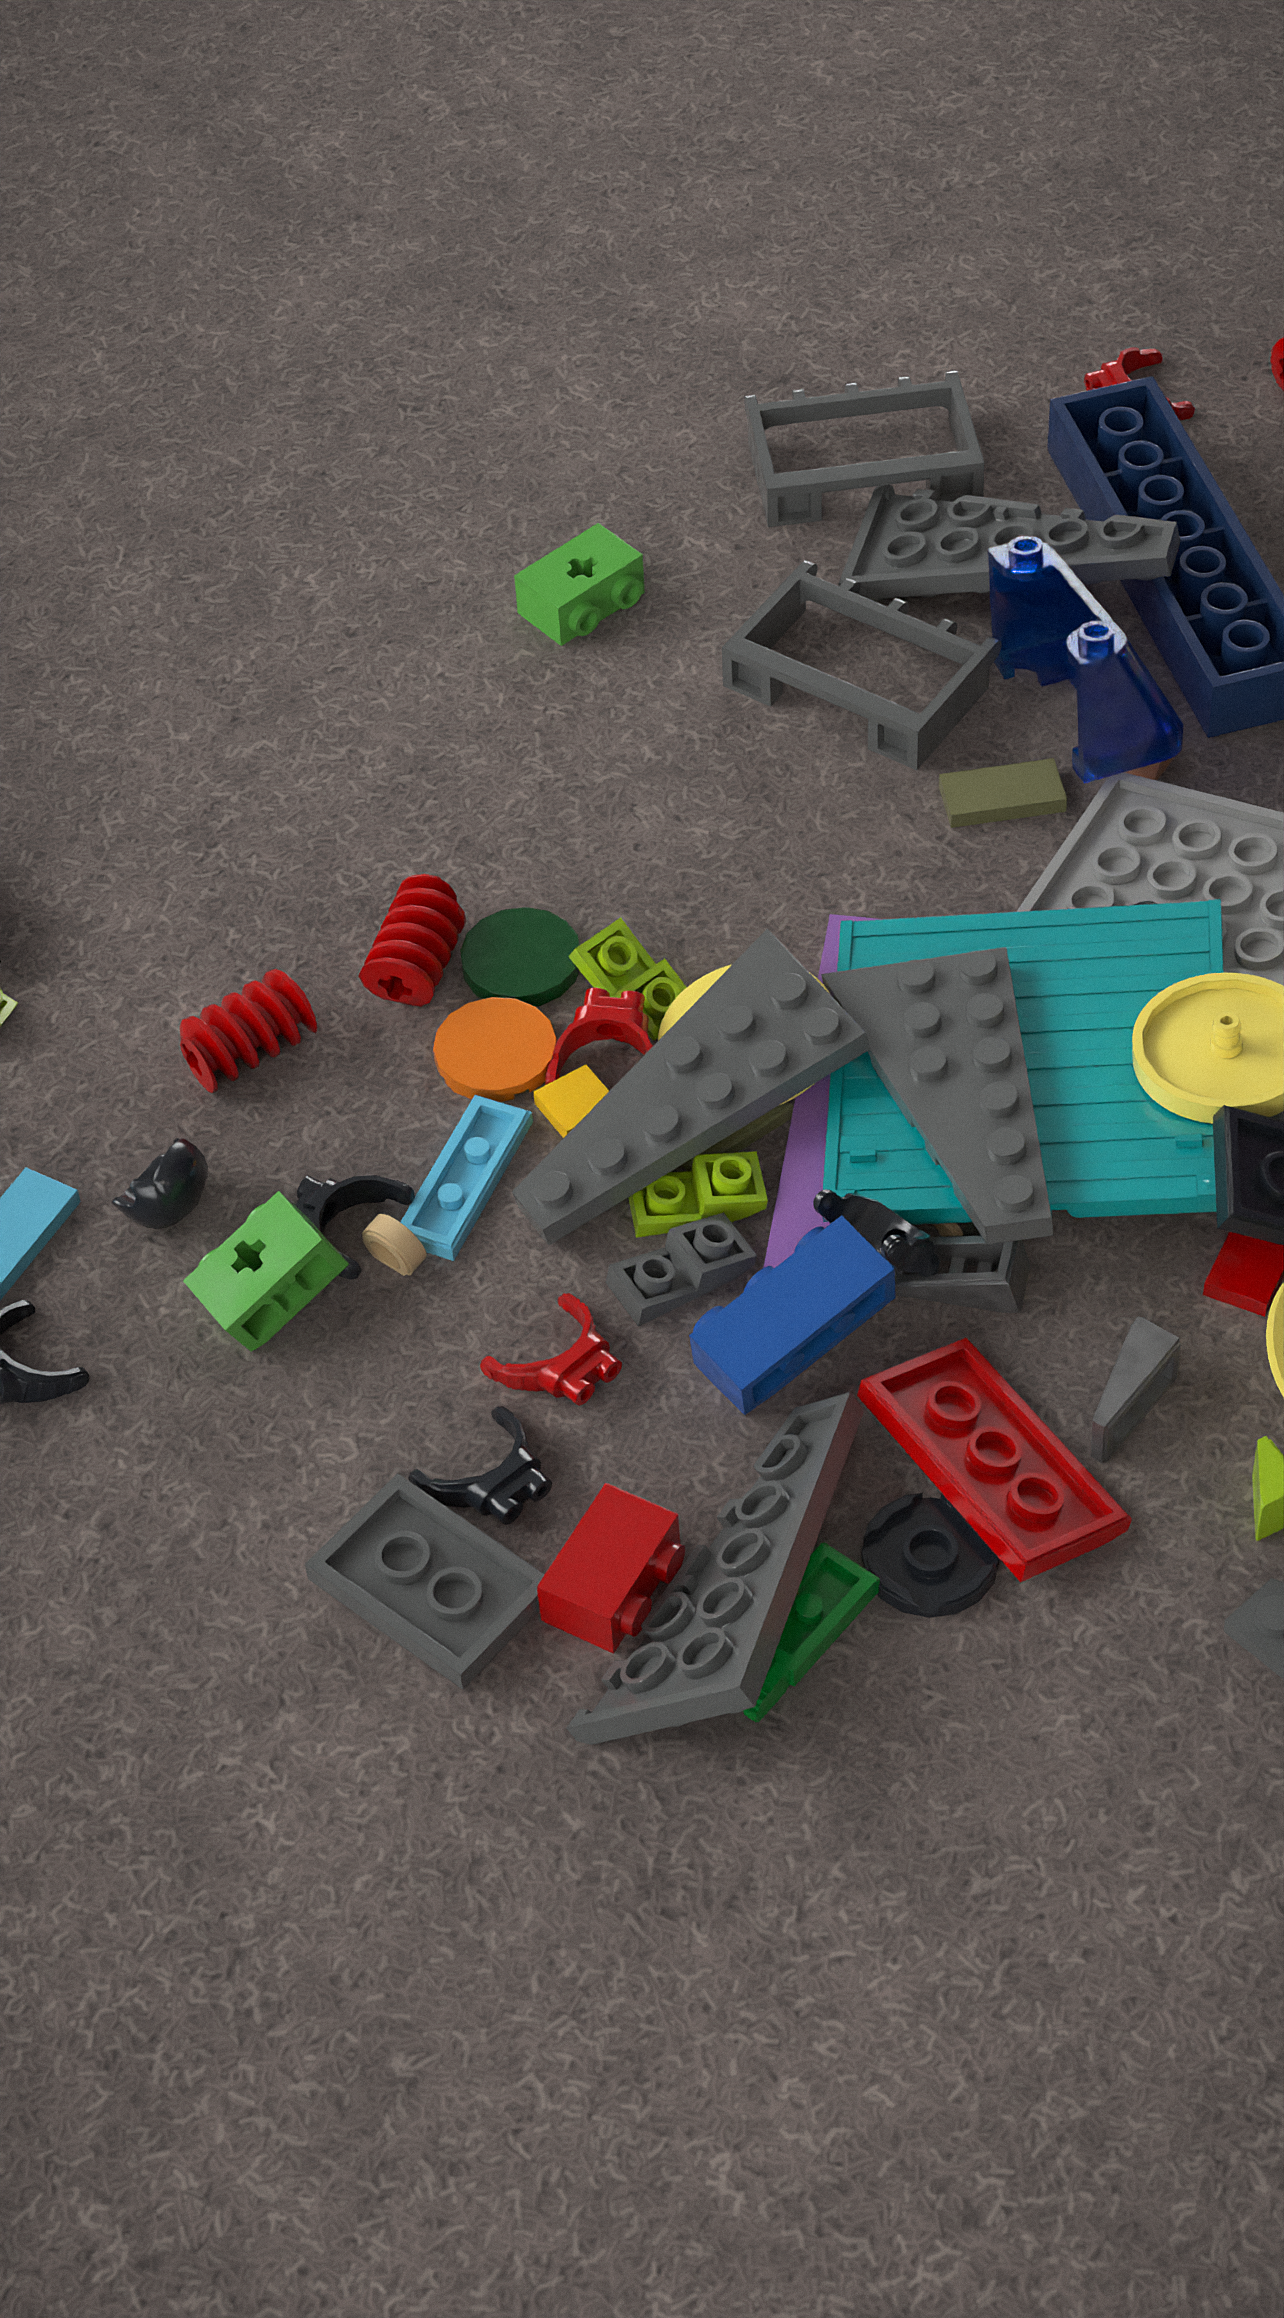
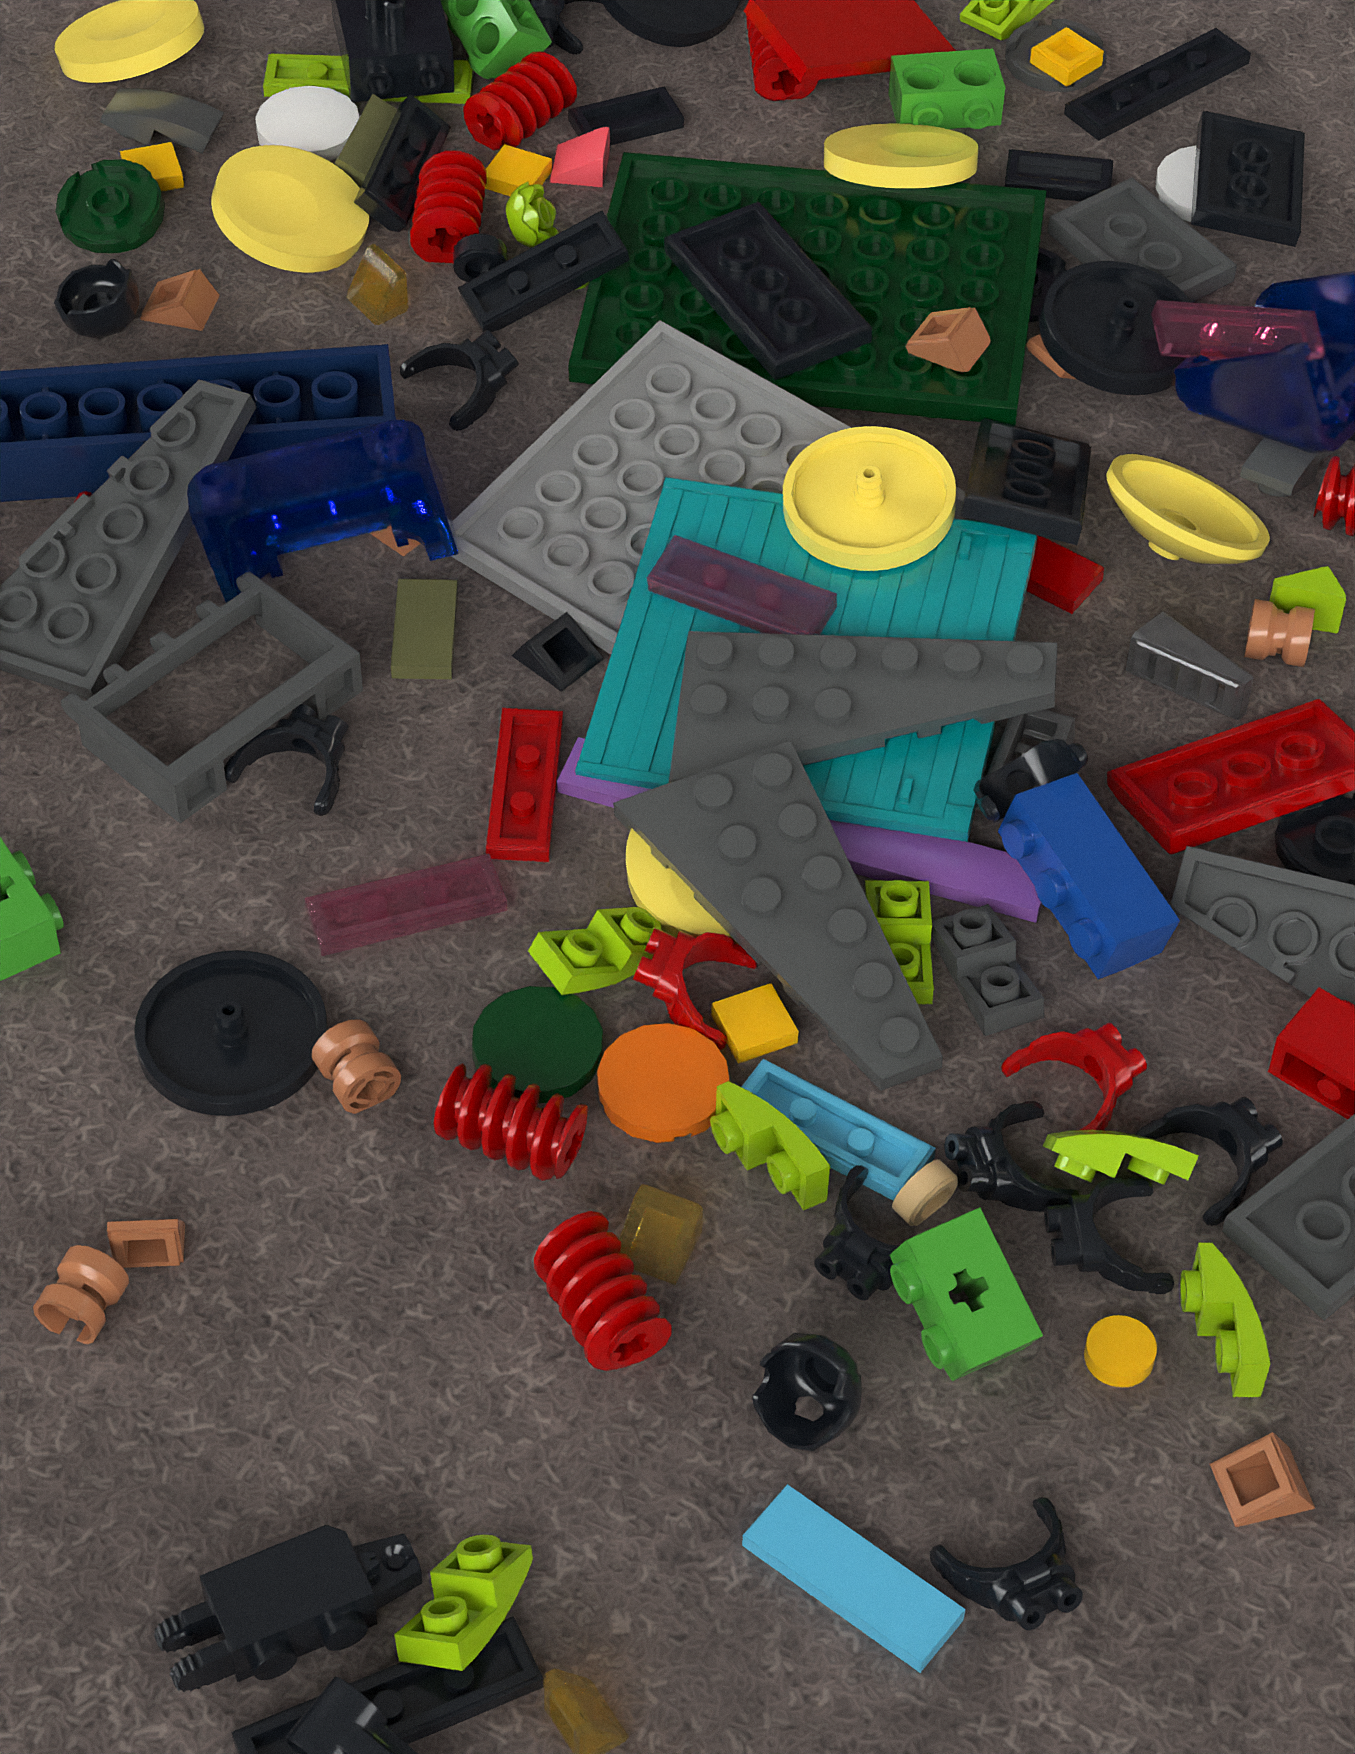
camera: 85 degrees left, 0 degrees up
(122, 1544) = (1261, 1482): none -> nougat slope
(213, 722) = (83, 1291): none -> nougat wheel
(249, 1417) = (1120, 1351): none -> yellow tile
(270, 750) = (147, 1242): none -> nougat slope
(304, 1478) = (1227, 1312): none -> lime slope
(325, 1070) = (661, 1232): none -> clear yellow slope
(371, 1367) = (1082, 1246): none -> black helmet
(419, 1137) = (767, 1136): none -> lime slope
(441, 1281) = (990, 1169): none -> black helmet
(459, 838) = (353, 1061): none -> nougat wheel
(463, 1383) = (1091, 1151): none -> lime slope
(493, 761) = (230, 1032): none -> black piece
(662, 844) = (405, 904): none -> clear pink tile
(811, 897) = (525, 785): none -> red tile
(822, 749) = (302, 734): none -> black helmet
(997, 887) = (559, 653): none -> black slope
(1076, 982) = (740, 590): none -> clear pink tile
(1213, 1456) = (1279, 633): none -> nougat wheel

